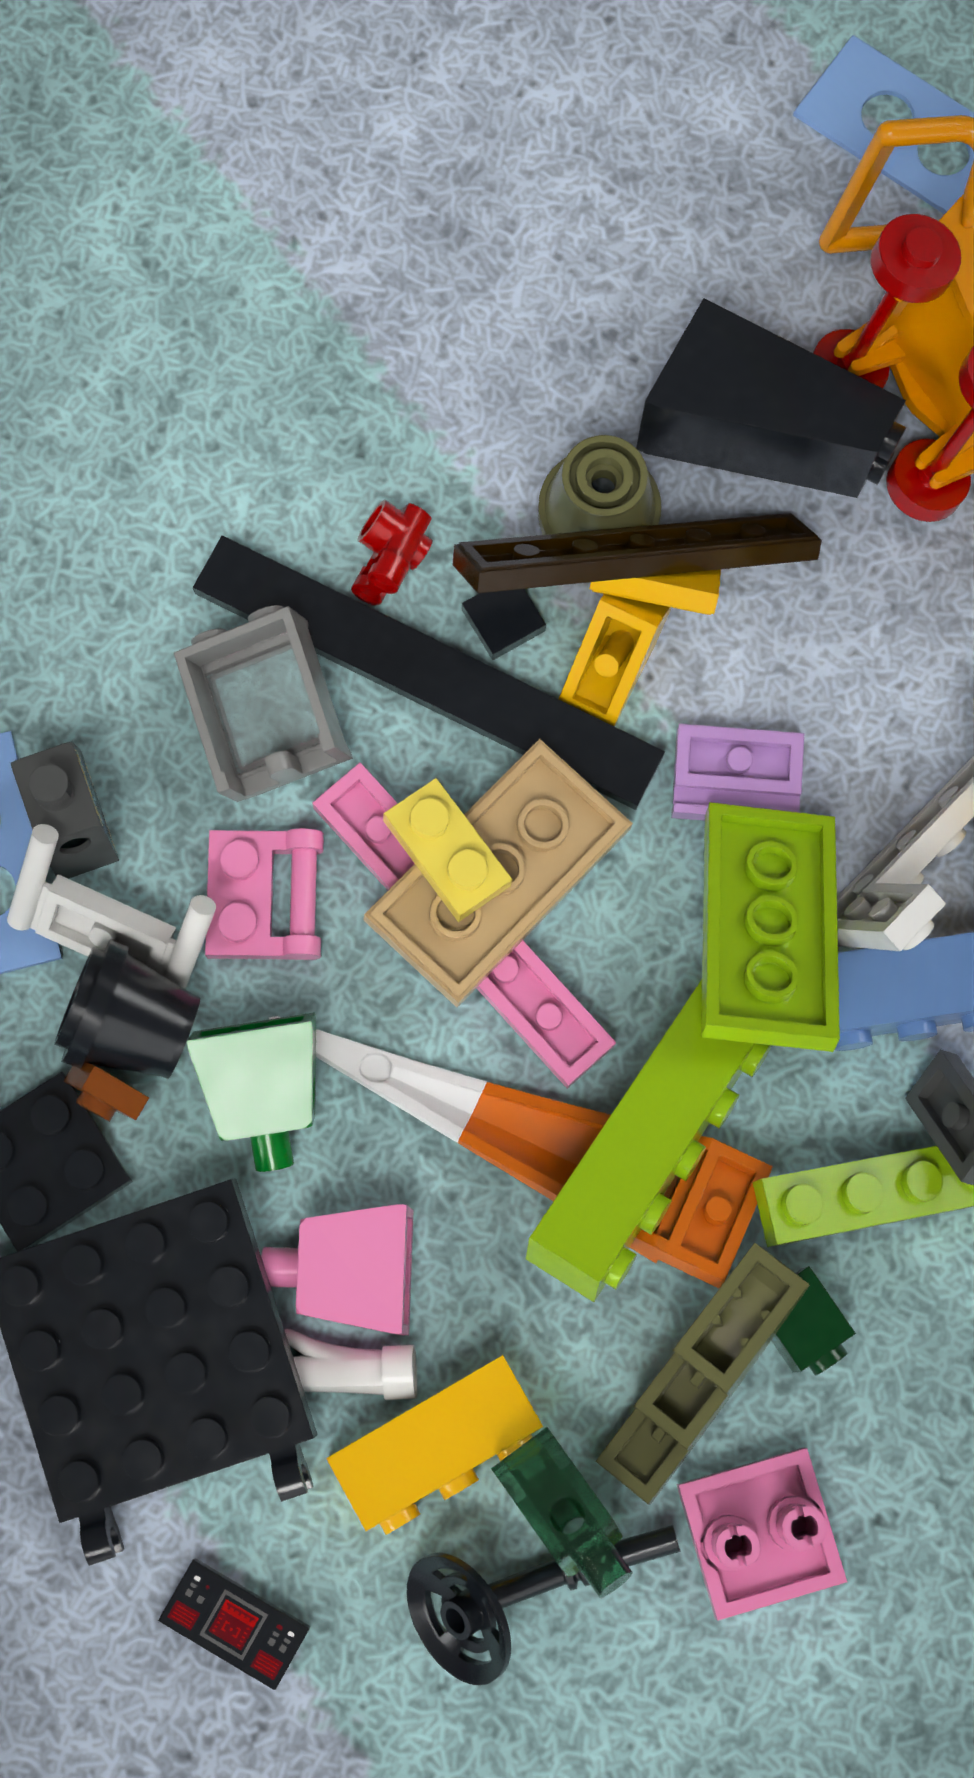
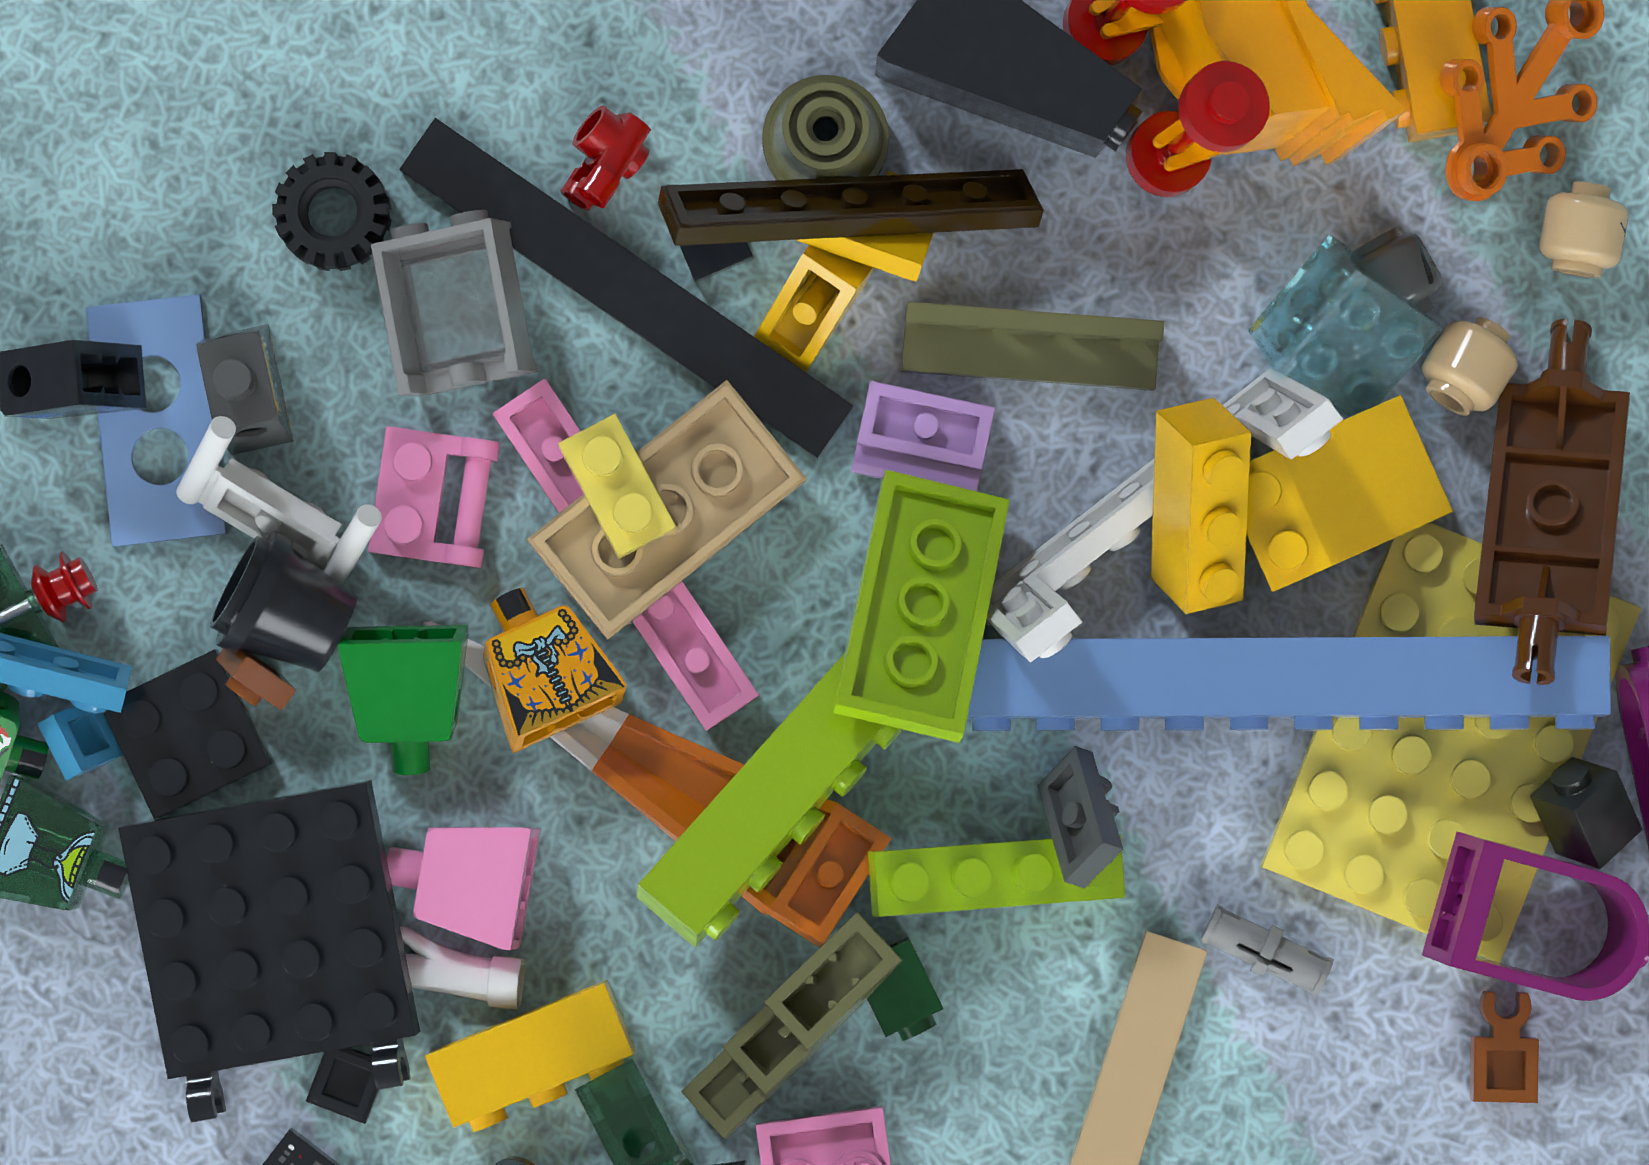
camera: 10 degrees right, 10 degrees up
(123, 600) = (322, 174): none -> black tyre
(246, 1502) = (345, 1084): none -> black tile
(400, 1046) = (546, 671): none -> torso
(883, 670) = (1031, 346): none -> olive fence

